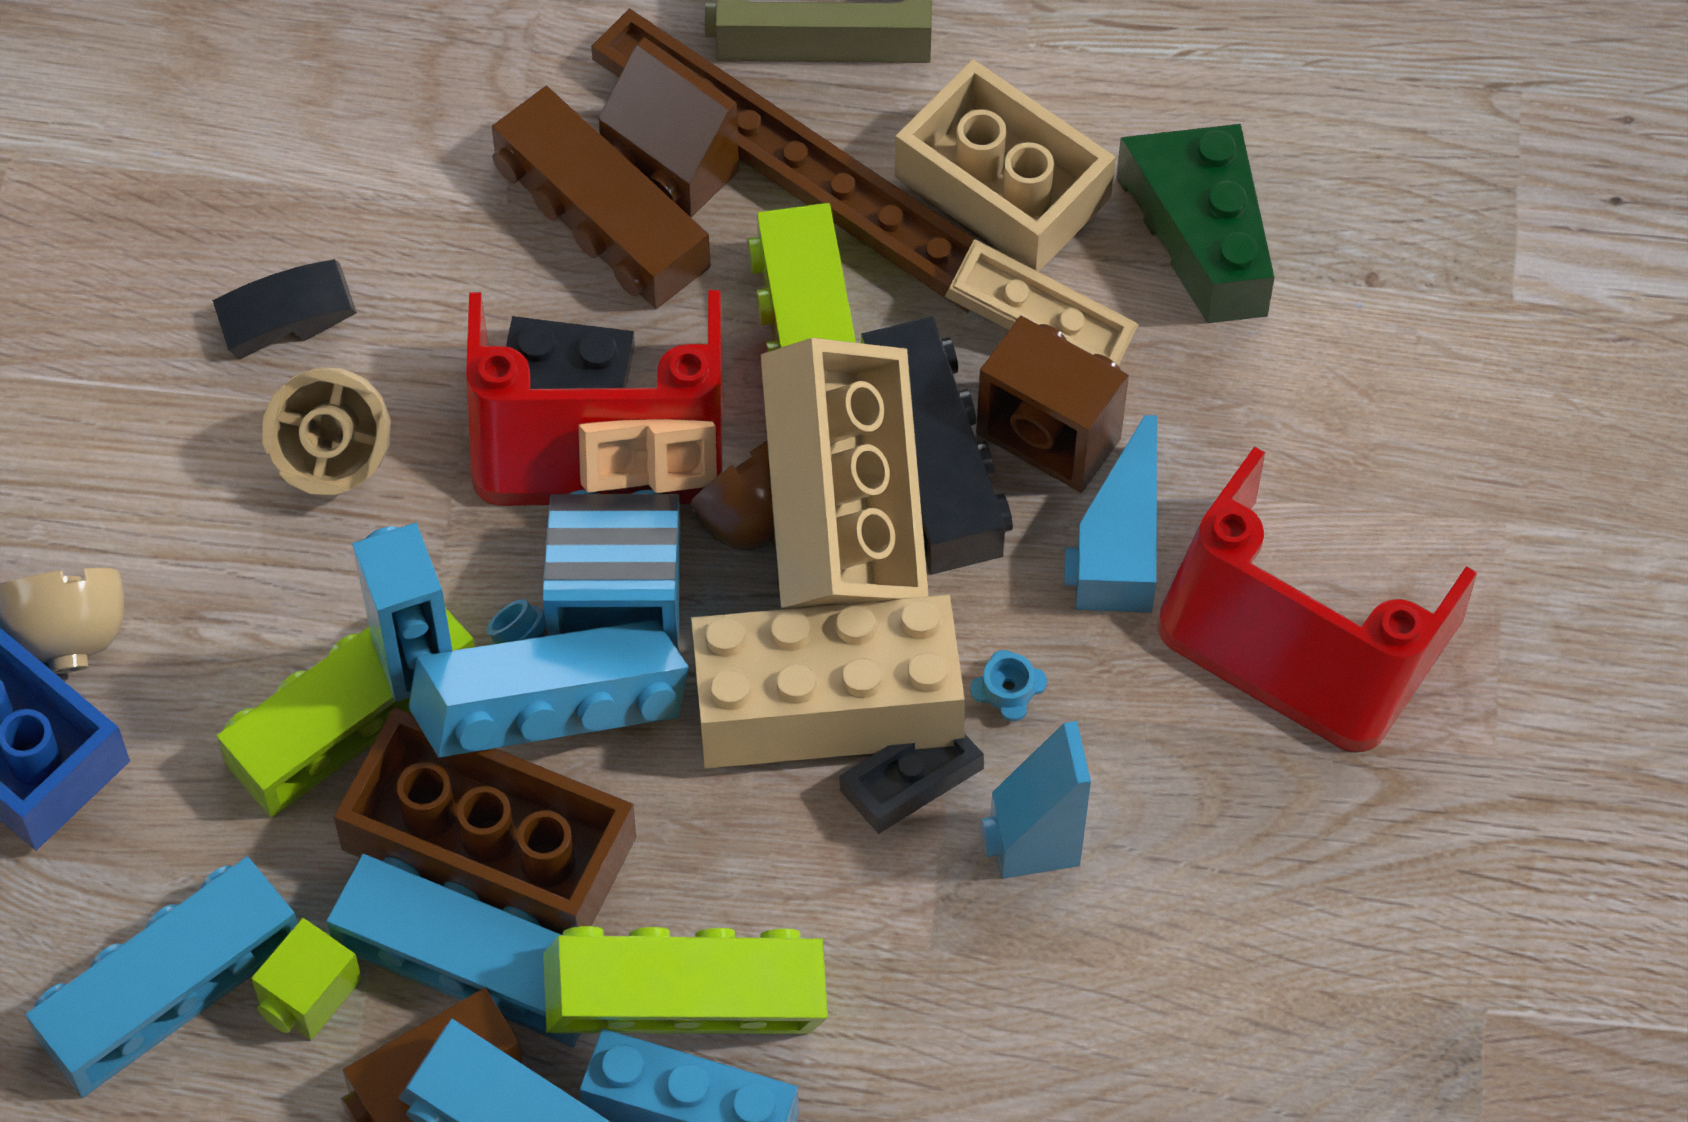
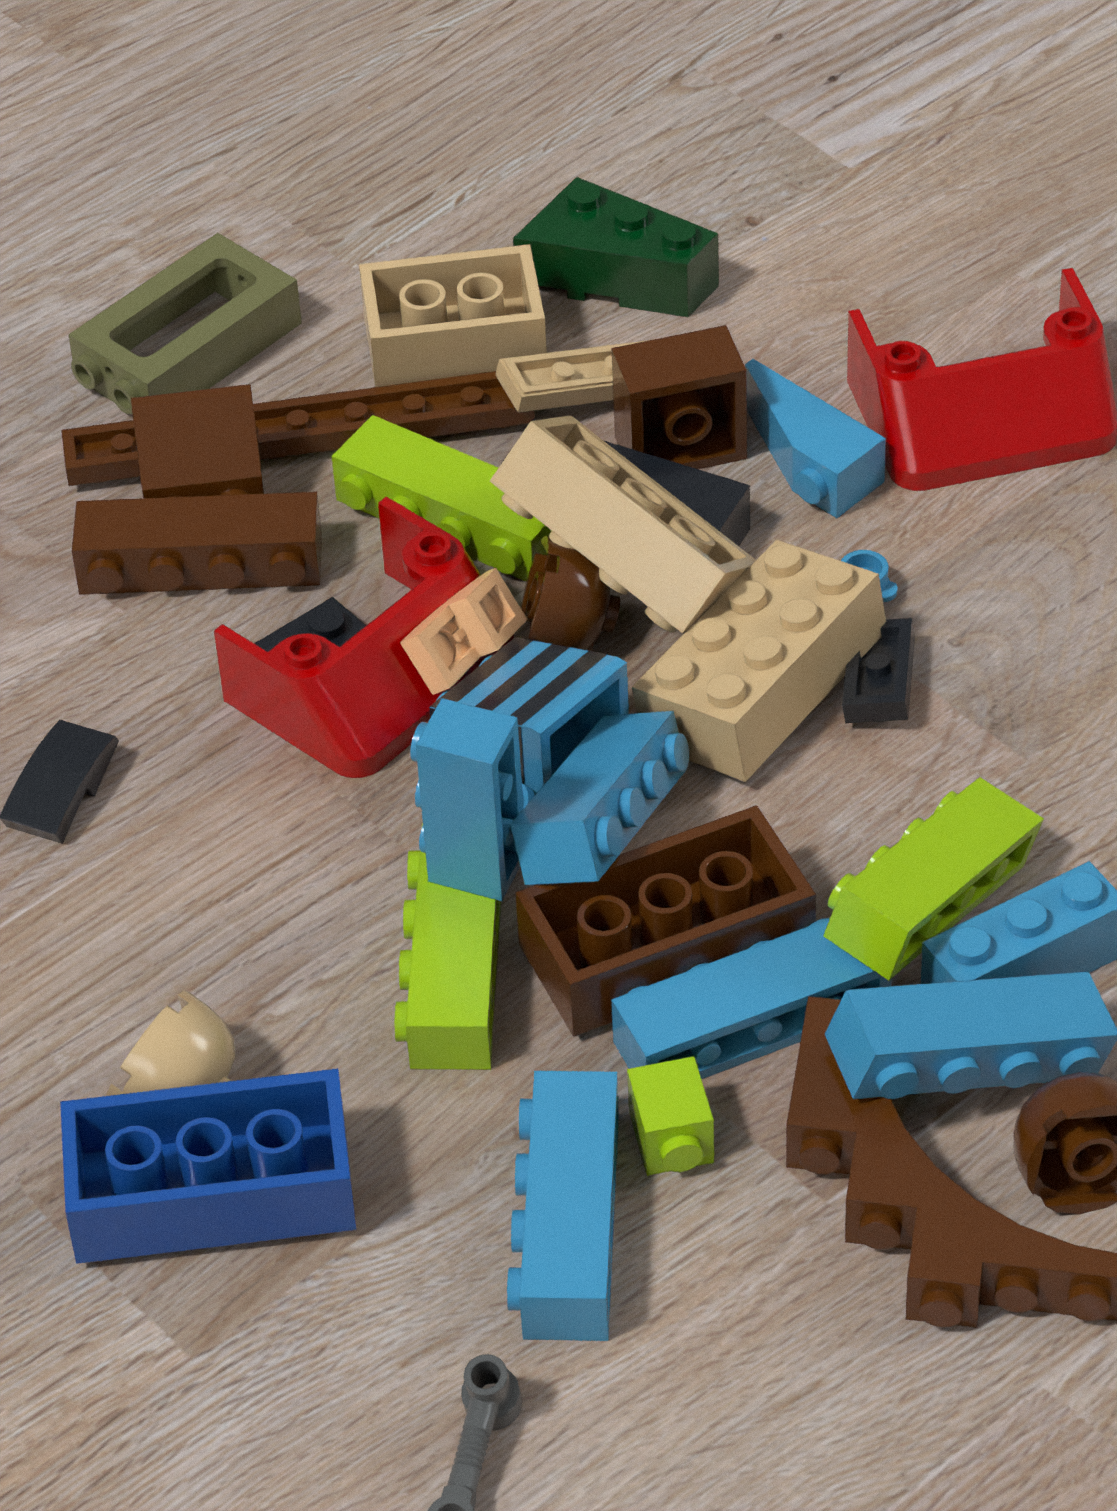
camera: 45 degrees left, 15 degrees down
(326, 430) = (216, 798): tan cylinder -> none
(1041, 808) = (1007, 587): dark azure slope -> none

